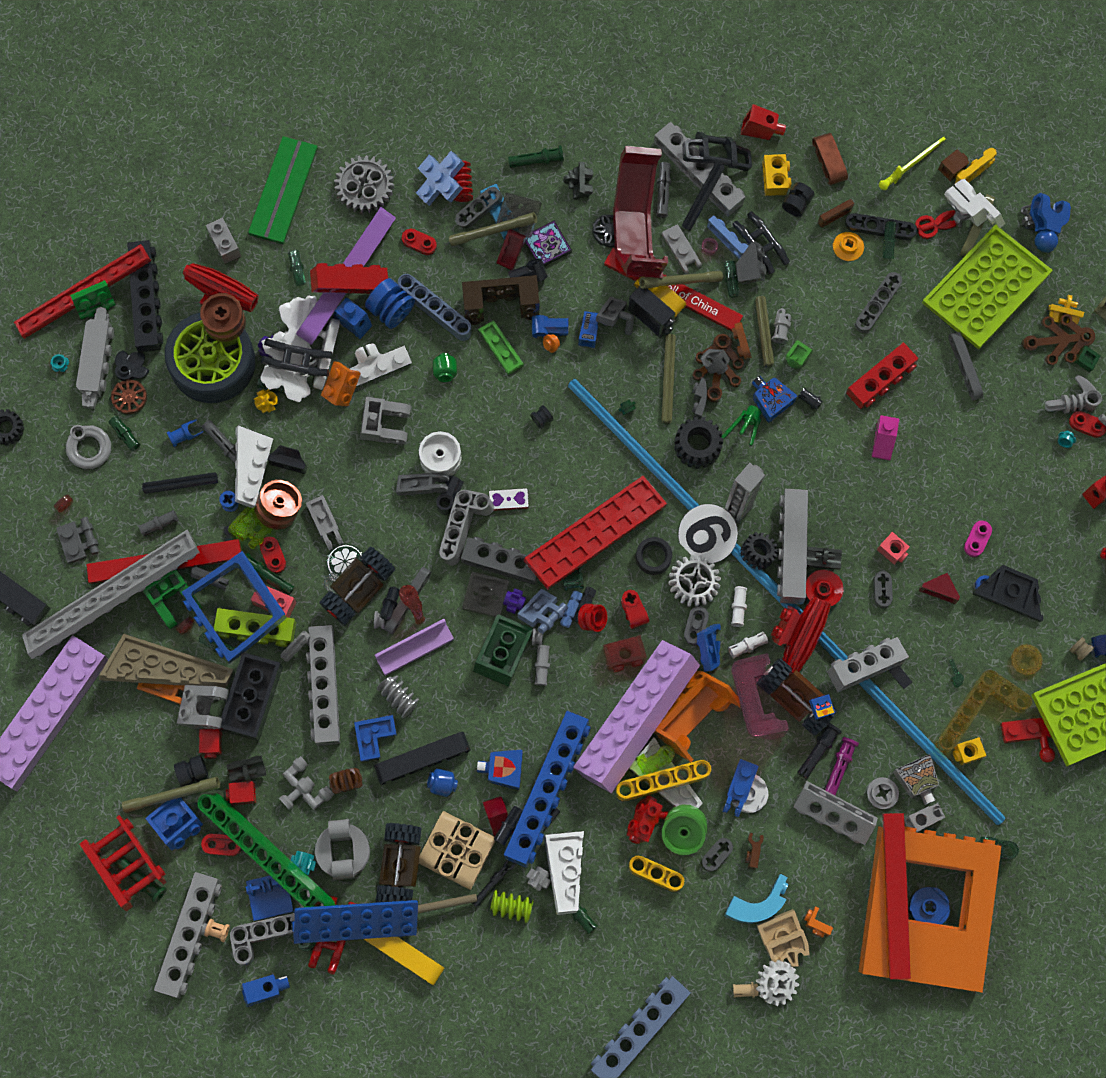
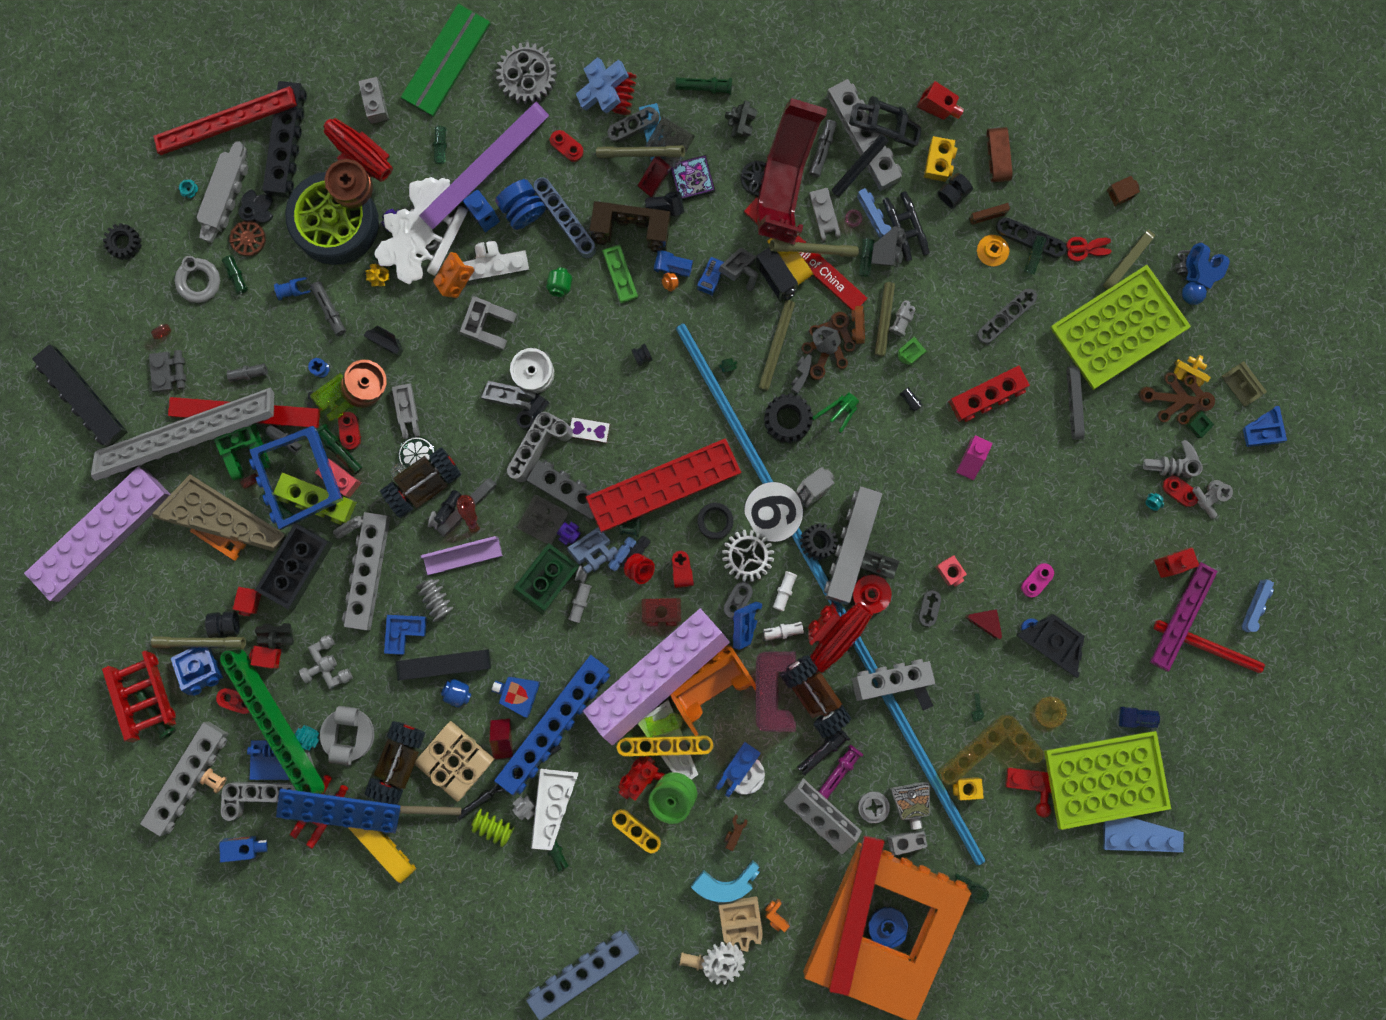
camera: 20 degrees right, 10 degrees up
(90, 296) = (232, 128): green plate -> none
(181, 482) = (277, 337): black axle -> none
(197, 704) = (240, 565): light grey brick -> none
(250, 464) = (347, 335): white wing -> none
(288, 350) = (408, 230): black piece -> none
(345, 780) = (364, 670): reddish brown gear -> none
(346, 279) = (480, 171): red brick -> none
(508, 826) = (506, 752): black axle -> none
(713, 851) = (702, 830): dark grey beam -> none
(772, 397) = (873, 389): blue torso -> none
(822, 706) = (835, 715): blue tile -> none
(897, 174) = (1063, 187): neon yellow sword -> none
(971, 206) = (1128, 239): white plate -> none
(977, 166) = (1145, 198): yellow hinge -> none
(1081, 649) = (1107, 715): dark tan wheel -> none

